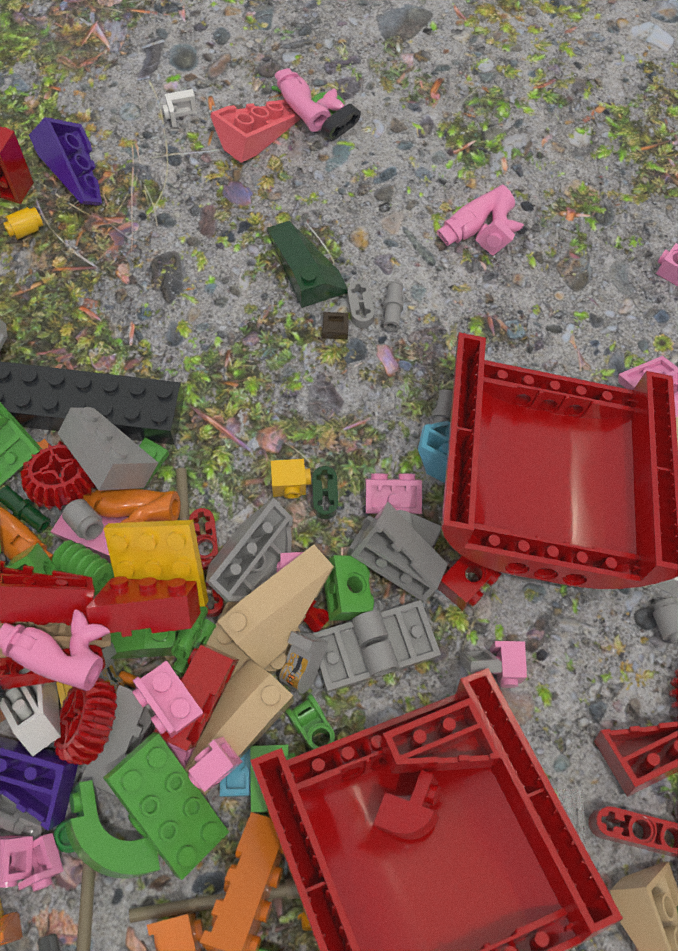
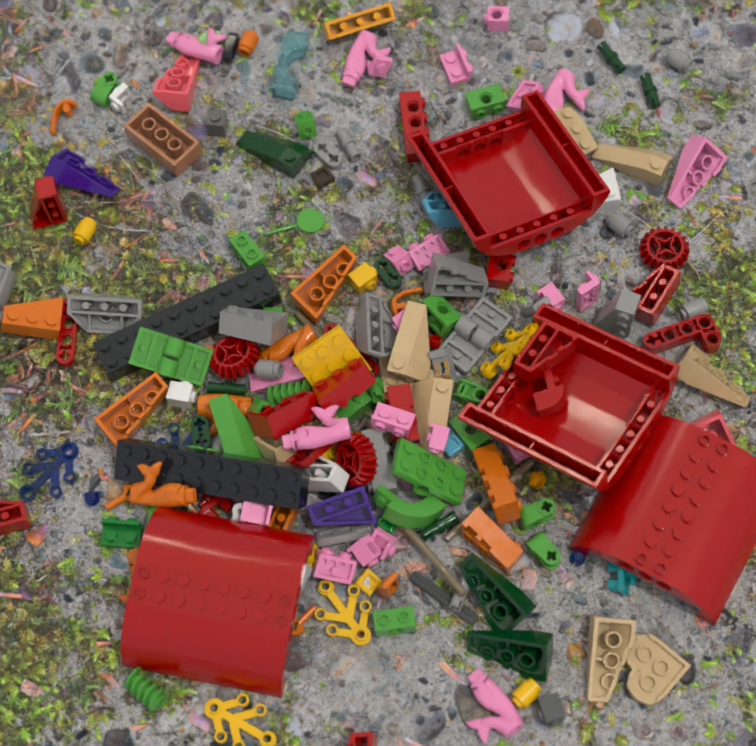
camera: 25 degrees left, 0 degrees up
(115, 81) = (65, 106): none -> orange piece
(133, 890) = (439, 526): none -> dark green pin
(168, 84) = (104, 88): none -> bright green piece
(178, 357) = (247, 250): none -> bright green brick
(186, 174) = (163, 139): none -> nougat brick
(232, 455) = (322, 286): none -> orange wedge
(260, 191) = (216, 123): none -> dark grey brick
(279, 367) = (308, 221): none -> bright green piece
(303, 543) = (397, 307): none -> orange piece
(351, 483) = (399, 259): none -> bright pink bracket
(359, 253) = (305, 124): none -> bright green bracket
(363, 128) = (247, 43): none -> orange brick
(405, 703) = (510, 349): none -> yellow plant
(411, 161) = (294, 47): none -> clear light blue arch
(502, 300) = (412, 102): none -> red brick
(513, 174) = (358, 21): none -> light orange brick
(565, 689) = (587, 292): none -> bright pink bracket
(586, 751) = (618, 314): none -> light grey wedge
(589, 292) = (456, 66): none -> bright pink bracket
(608, 349) = (492, 95): none -> bright green brick

